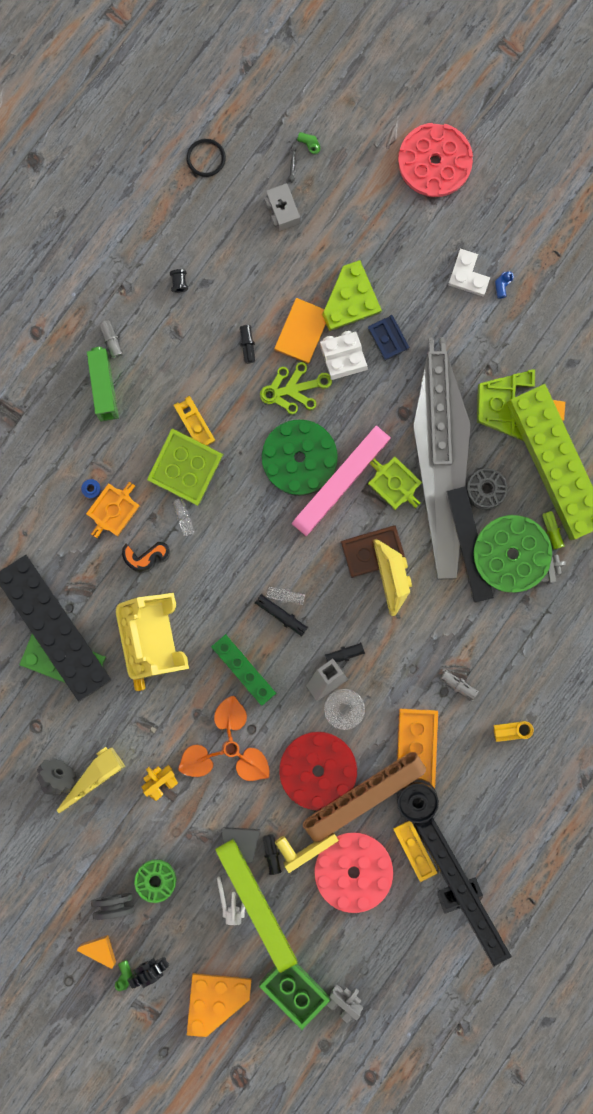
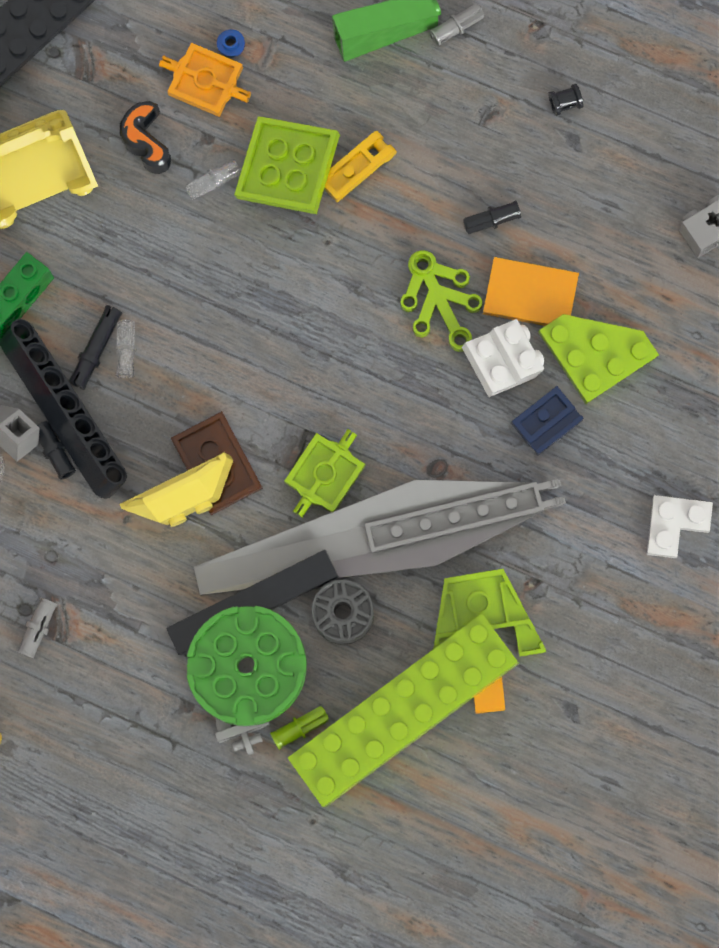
camera: 90 degrees right, 5 degrees down
(295, 476) = (344, 356): green plate -> none
(319, 642) = (63, 409): none -> black beam
(341, 481) = (313, 393): bright pink beam -> none
(501, 282) = (674, 577): blue arm -> none

